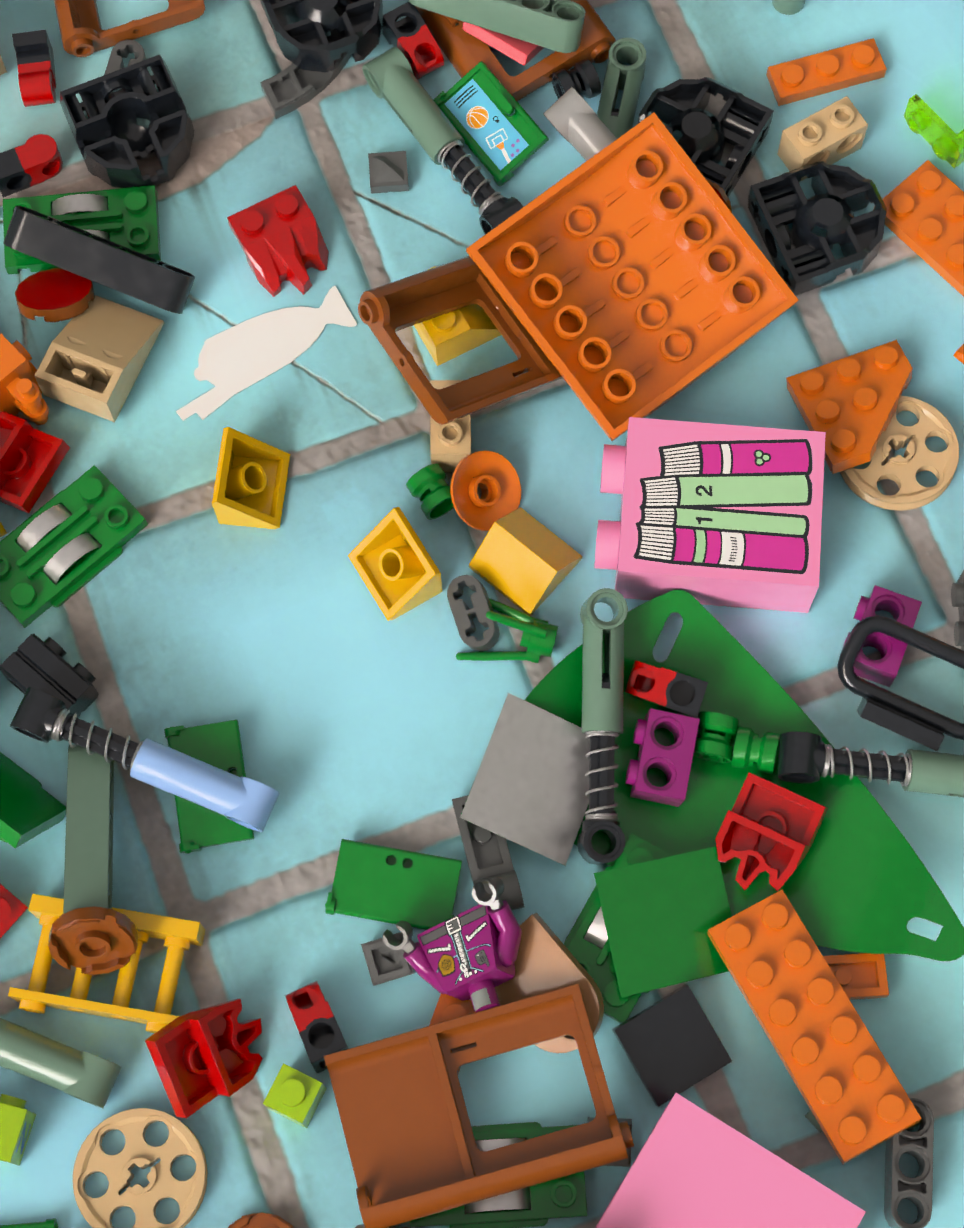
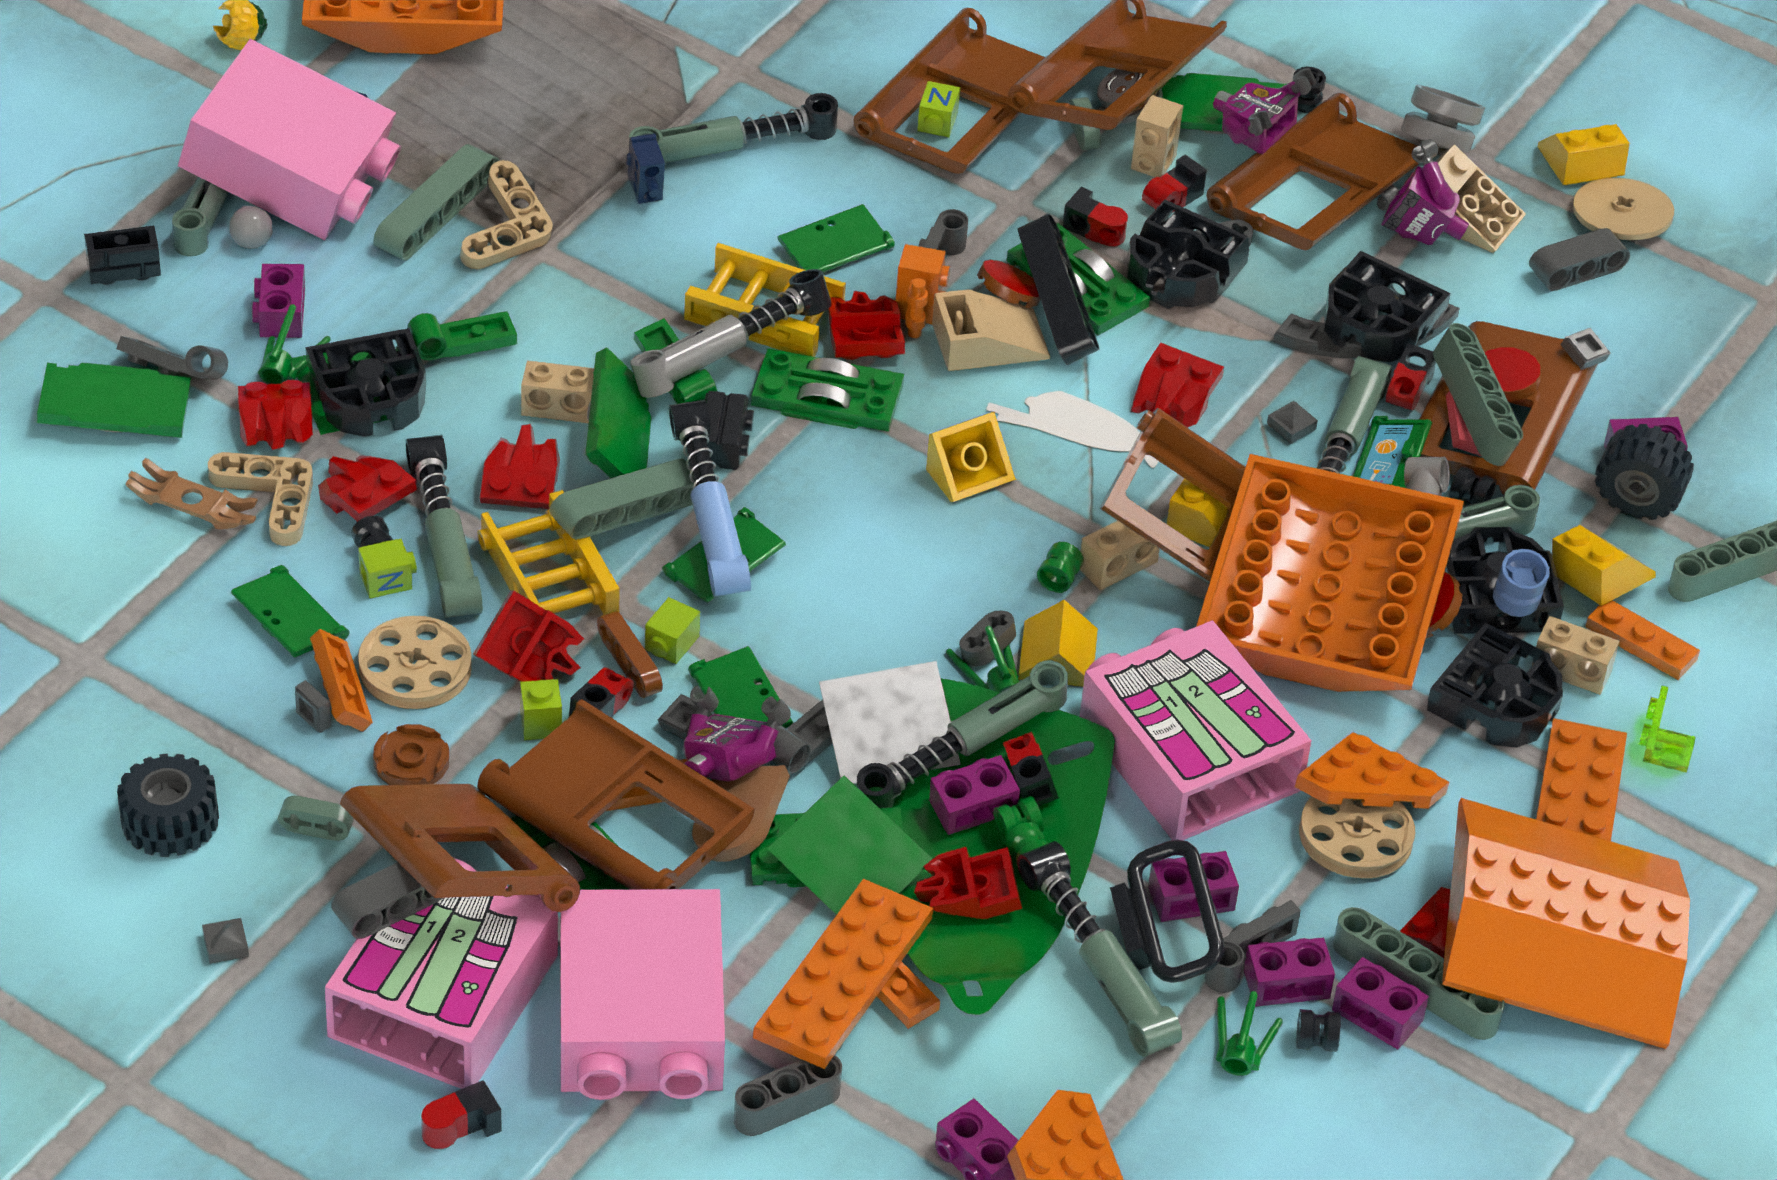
camera: 50 degrees right, 25 degrees down
(93, 940) = (556, 526): dark orange tile -> none
(275, 901) = (672, 630): none -> lime brick
(276, 960) = (629, 654): none -> dark orange beam
(396, 566) = (985, 575): yellow slope -> none
(498, 486) = (1100, 580): orange dish -> none
(671, 1045) = (762, 909): black tile -> none
(736, 48) = (1596, 565): none -> yellow slope
(747, 128) = (1521, 582): none -> medium blue wheel

